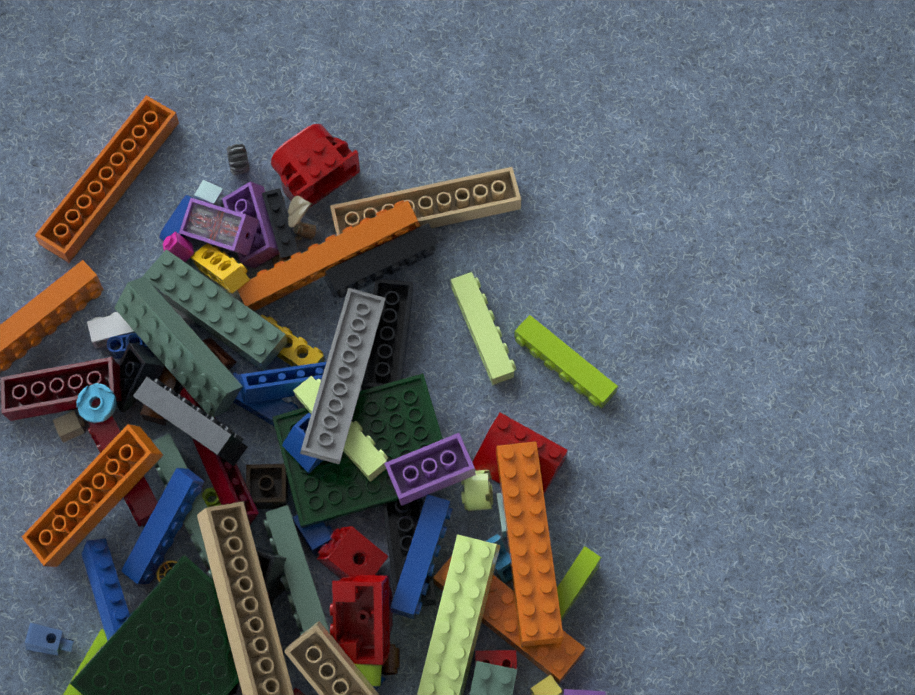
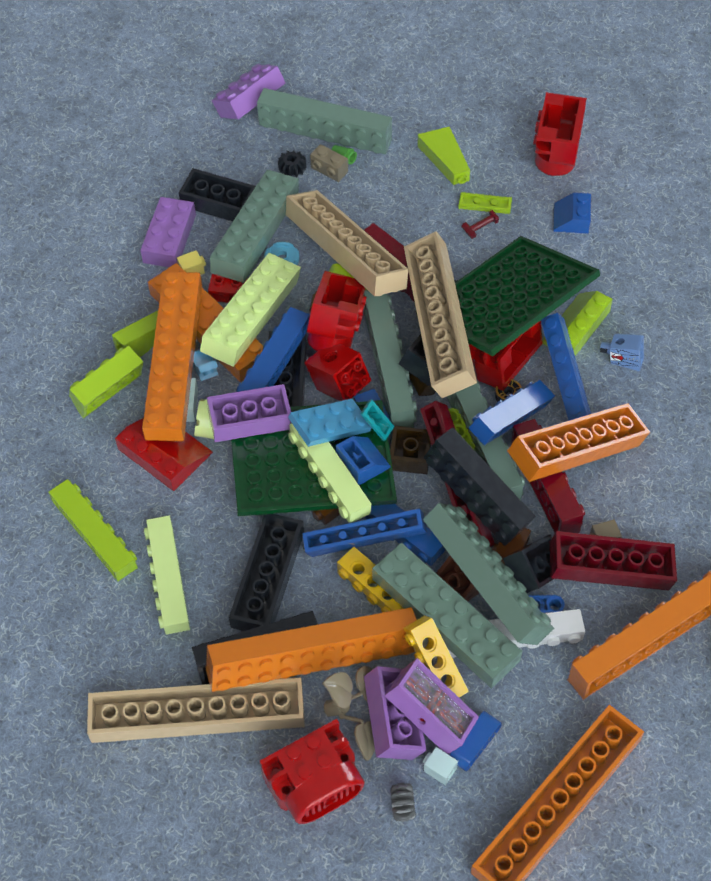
camera: 170 degrees left, 10 degrees down
(104, 410) = (570, 532): medium azure tile -> none
(178, 246) = (481, 699): dark pink brick -> none
(279, 222) = (362, 699): black plate -> none
(301, 489) = (377, 420): none -> teal slope
(339, 482) = (329, 422): none -> dark azure plate
(343, 376) = (316, 511): light grey plate -> none
(593, 510) = (105, 381): none -> lime slope

